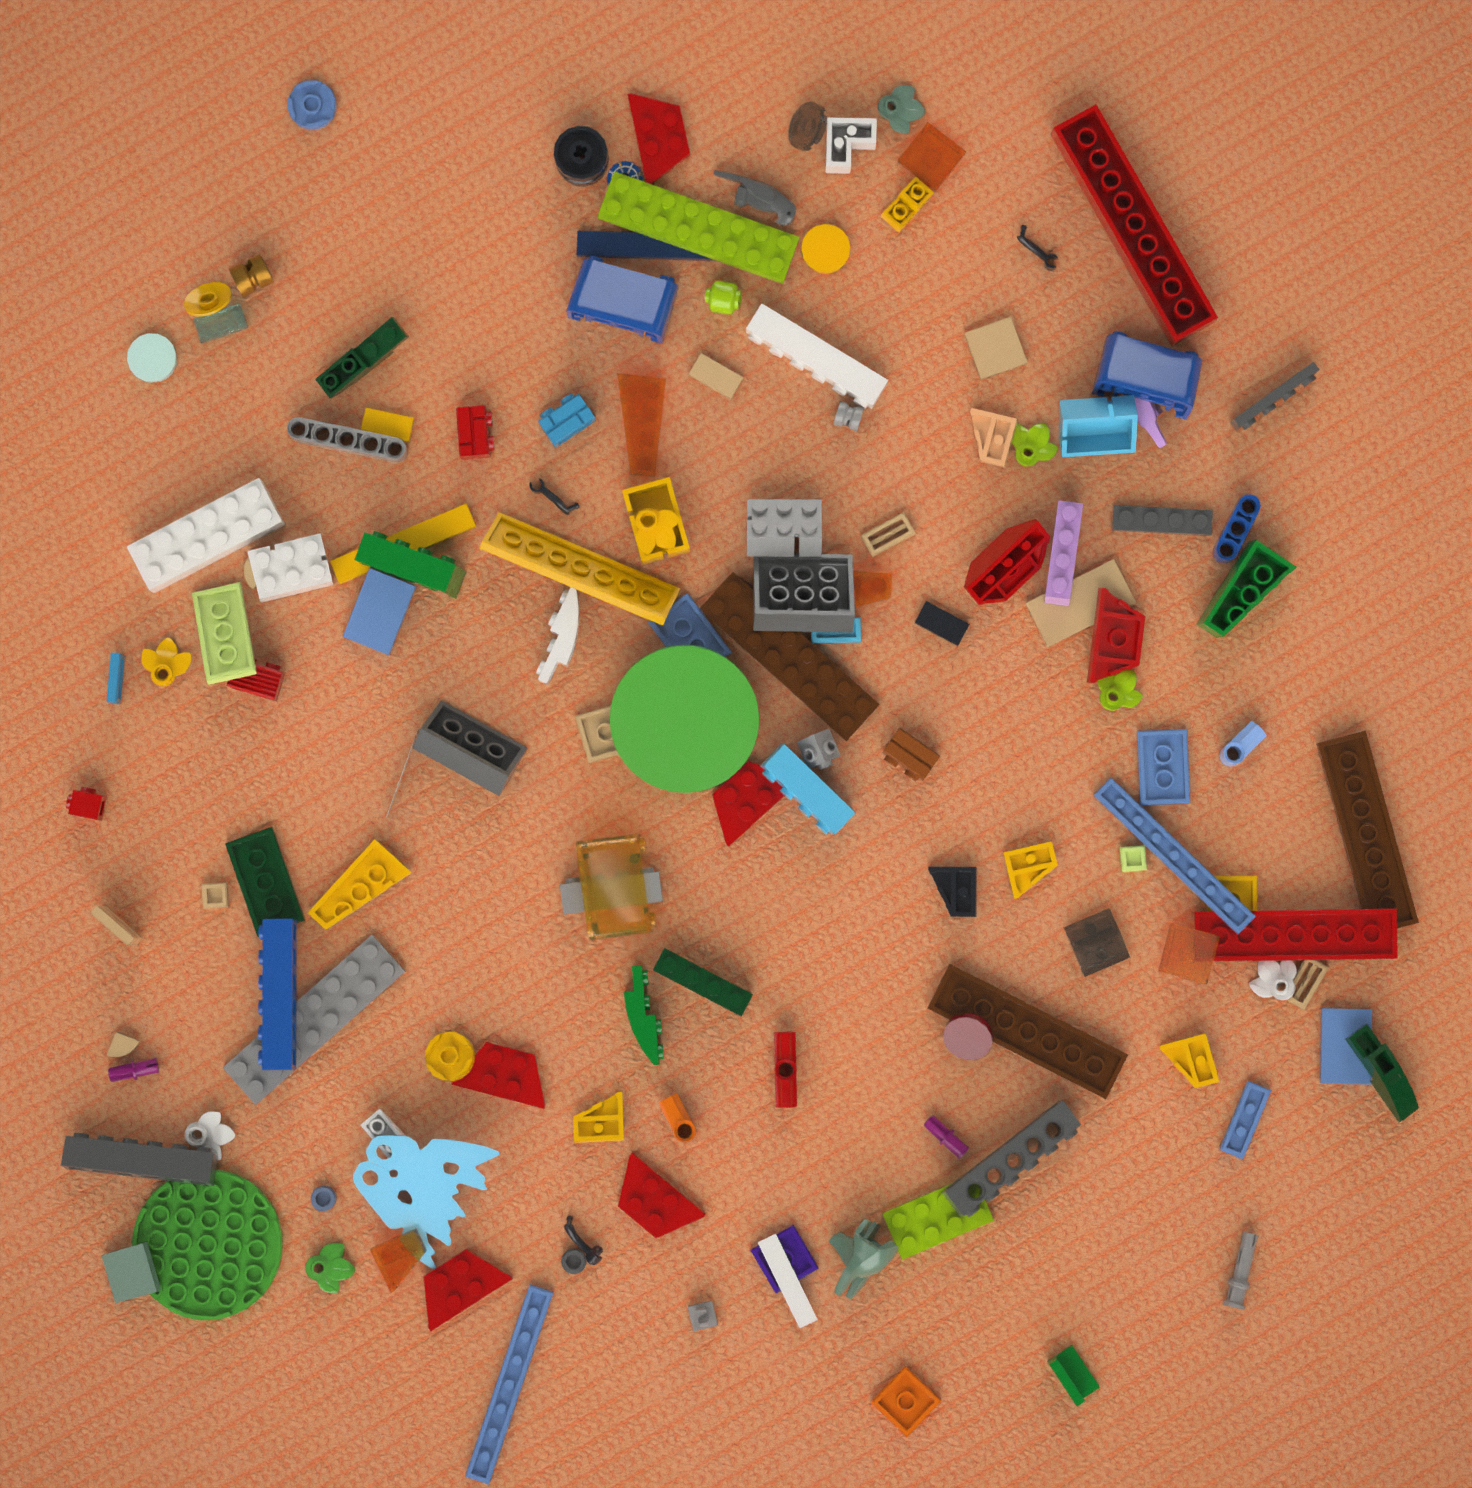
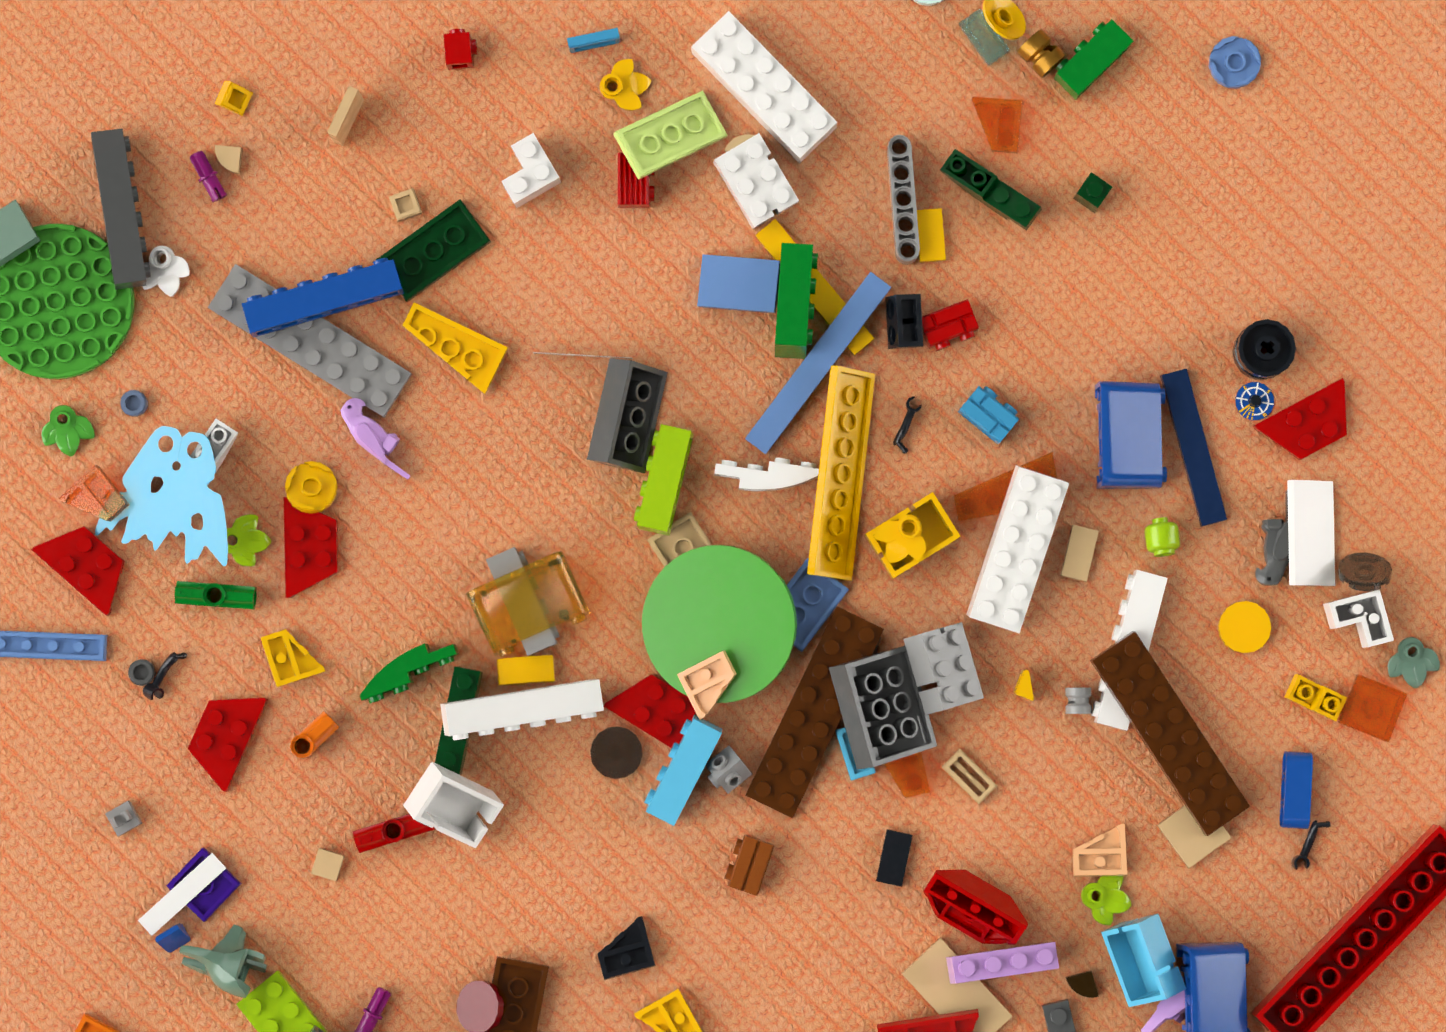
camera: 75 degrees right, 0 degrees up
(67, 1026) = (233, 98): none -> yellow slope
(222, 765) = (537, 172): none -> white brick
(269, 231) = (1092, 58): none -> green brick
(303, 331) = (1000, 122): none -> clear orange wing
(392, 267) = (1092, 192): none -> dark green brick
(417, 988) = (370, 434): none -> lavender animal
(459, 471) = (904, 321): none -> black brick
(473, 560) = (818, 363): none -> medium blue tile
(481, 1128) = (248, 540): none -> lime plate
(516, 1187) = (199, 594): none -> green piece
(538, 730) = (664, 479): none -> lime brick
(675, 907) = (525, 670): none -> yellow slope
(695, 429) = (1017, 549): none -> white brick
(698, 227) = (1226, 490): lime plate -> none
(708, 919) = (522, 707): none -> white brick
(734, 744) = (707, 682): none -> light nougat wing
(758, 163) = (1311, 533): none -> white tile
(773, 847) = (616, 752): none -> clear smoke tile
(776, 1009) = (451, 804): none -> white piece
(799, 1139) = (327, 864): none -> tan tile
(821, 461) = (1024, 687): none -> yellow slope
(825, 1300) = (173, 938): none -> blue slope
(901, 342) = (1169, 733): none -> reddish brown plate
(985, 246) = (1296, 790): none -> blue beam
(1103, 487) = (1083, 984): none -> dark brown tile

